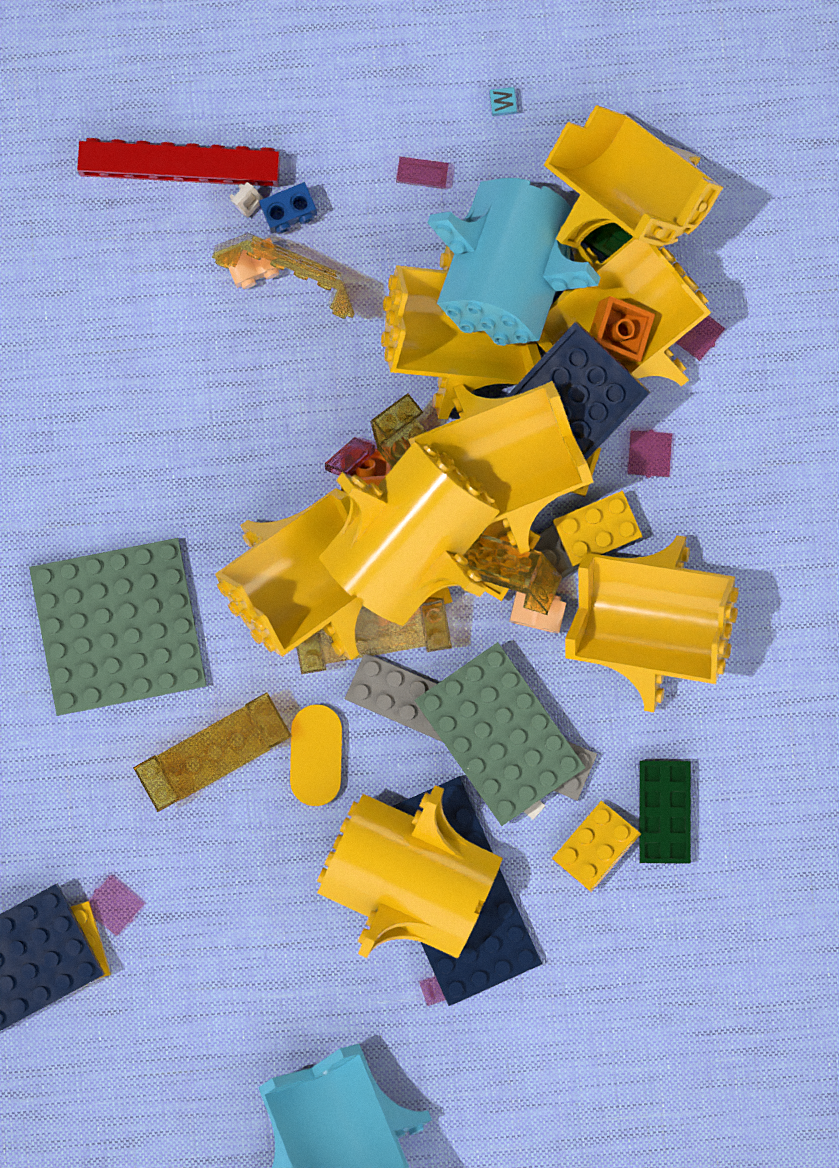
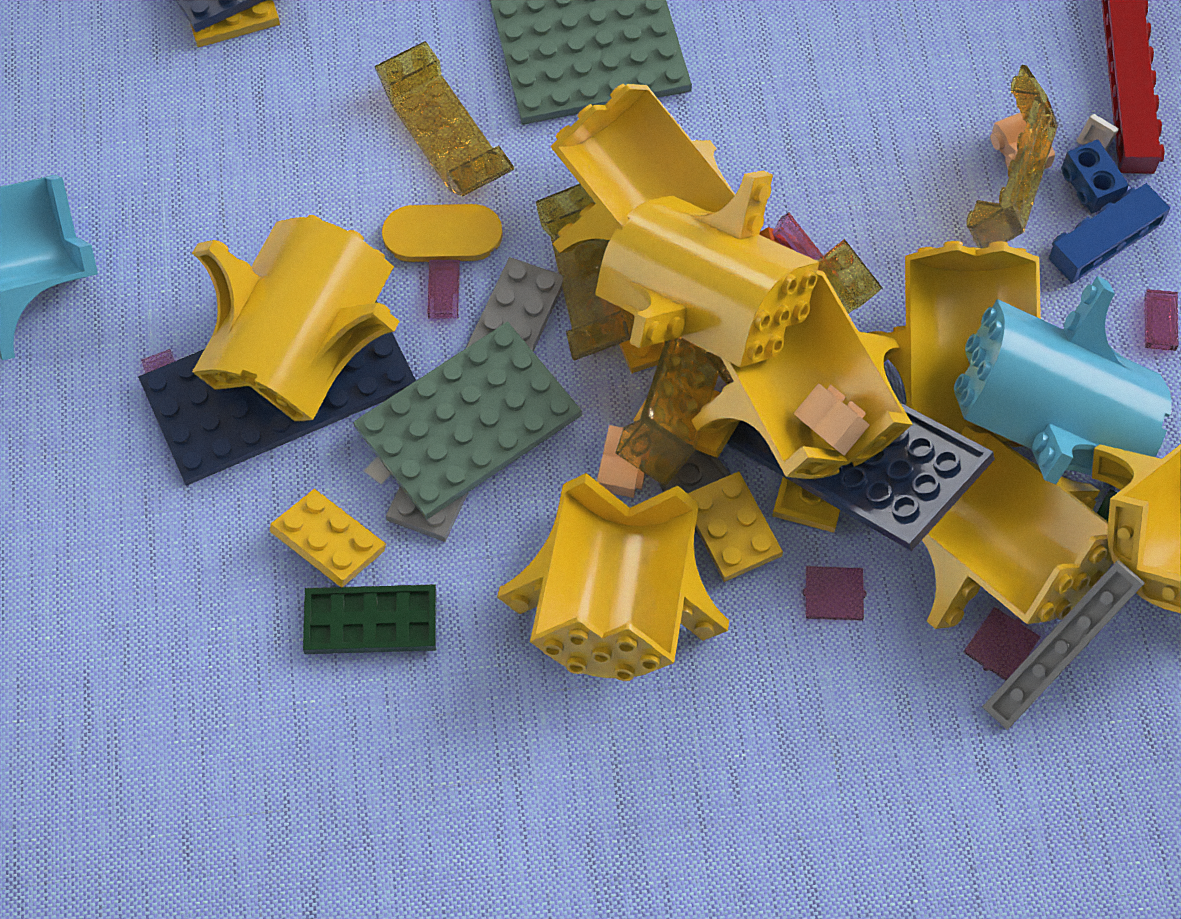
camera: 90 degrees right, 20 degrees down
(114, 905) = (274, 46): clear pink piece -> none
(343, 203) = (1108, 232): none -> blue brick
(370, 754) = (443, 289): none -> clear pink tile
(542, 443) = (831, 418): none -> light nougat brick
(622, 328) = (991, 525): orange slope -> none
(719, 287) = (1063, 644): none -> light grey plate

